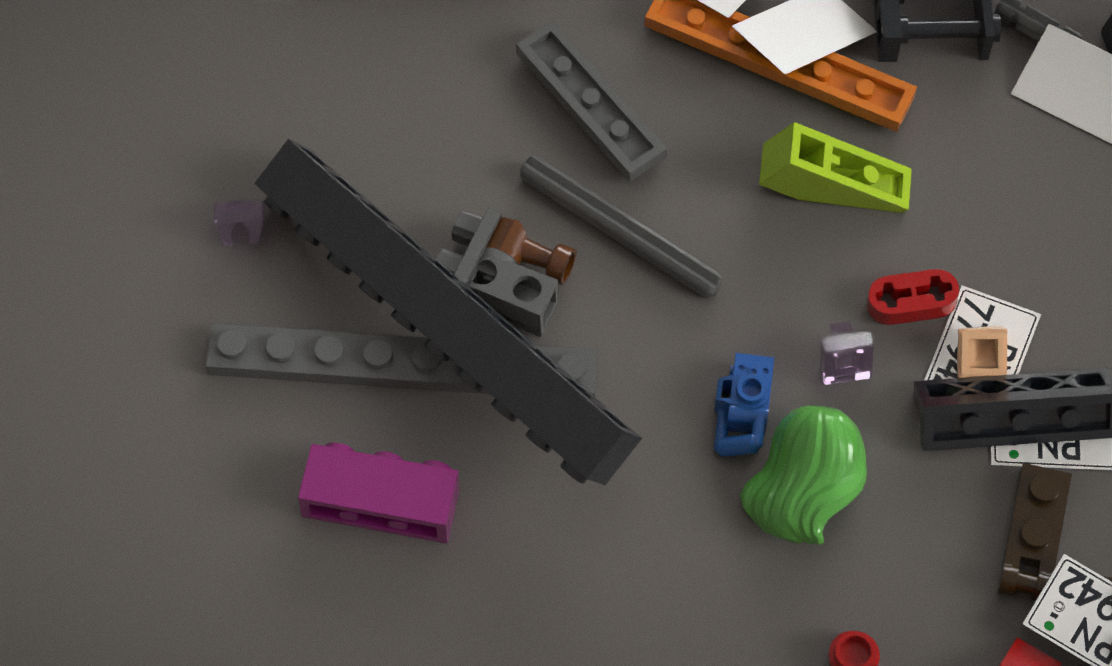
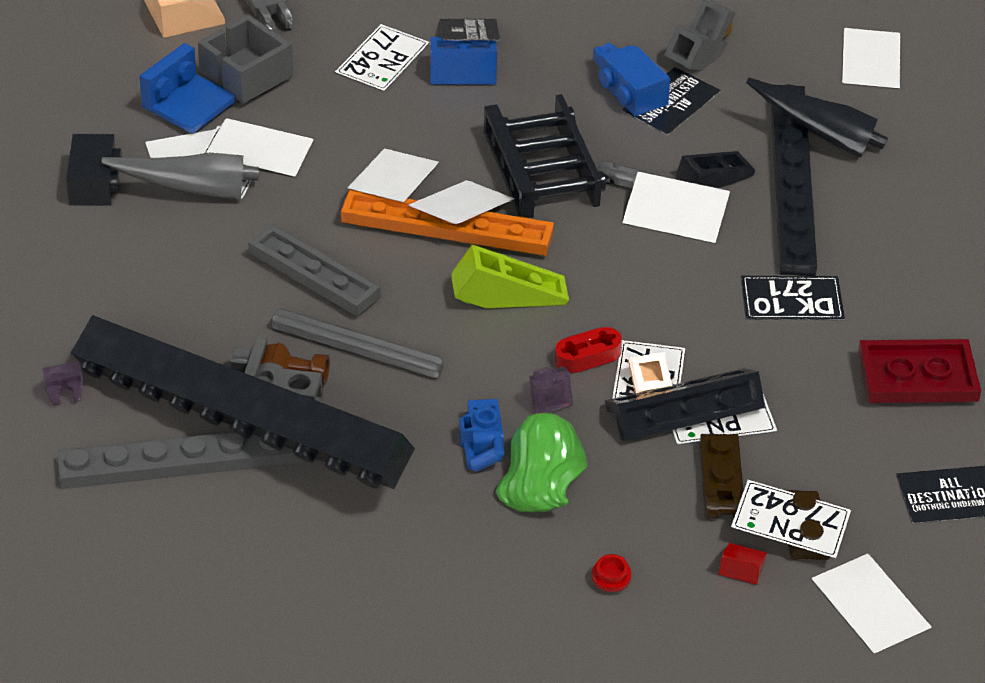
camera: 15 degrees left, 20 degrees down
(379, 492) = (218, 533): magenta brick -> none

